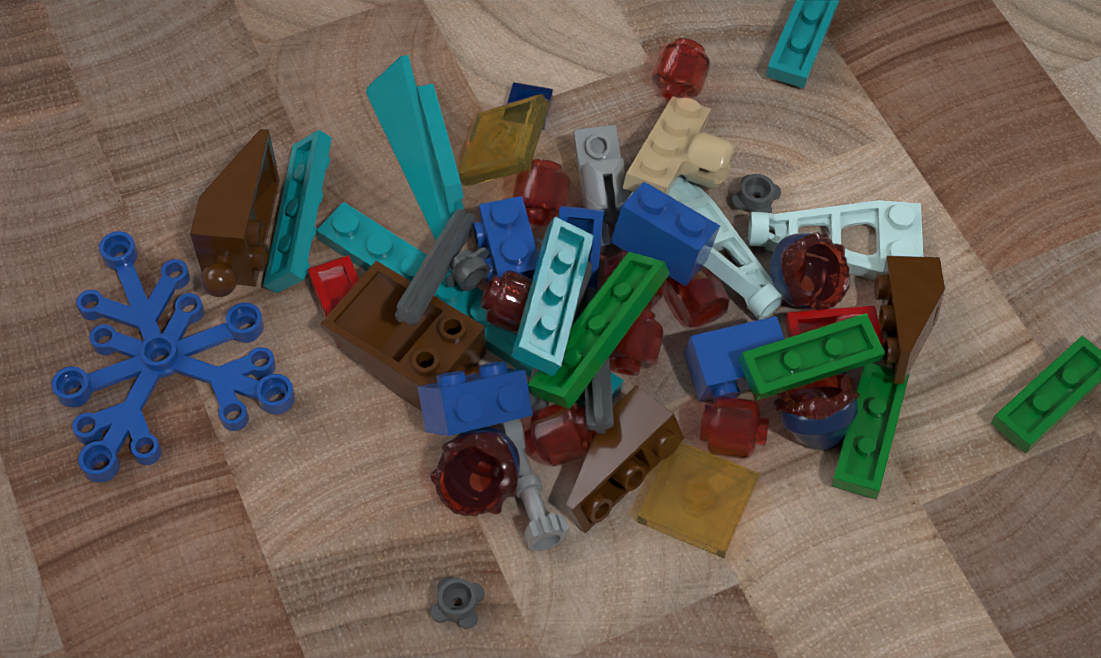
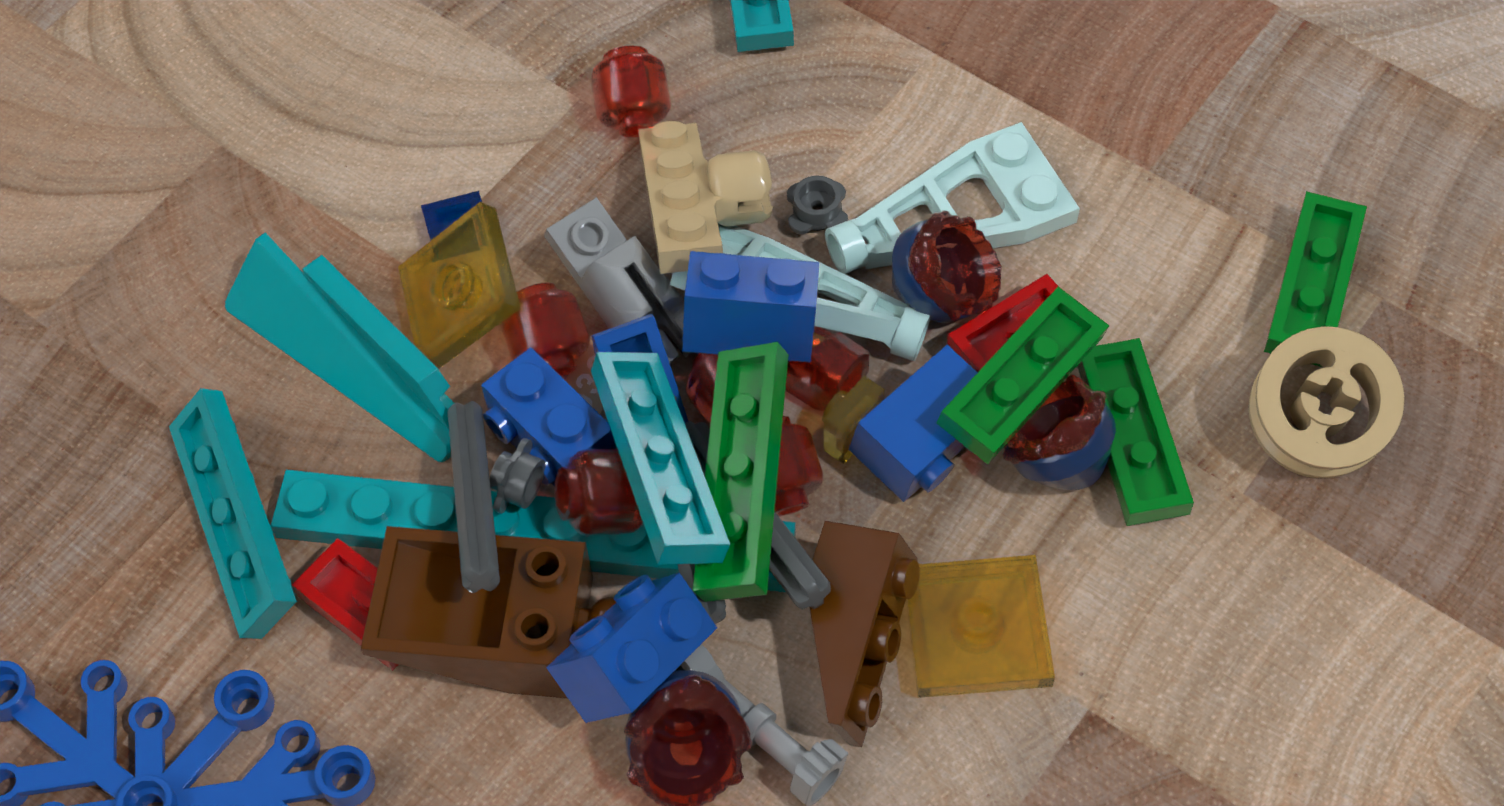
camera: 25 degrees left, 0 degrees up
(236, 218) = (153, 570): reddish brown slope -> none
(559, 434) = (761, 635): clear red head -> none
(690, 326) = (844, 414): none -> clear yellow plate
(733, 427) = (971, 513): clear red head -> none
(911, 305) = (1088, 248): reddish brown slope -> none
(1034, 449) = (1343, 357): none -> tan wheel

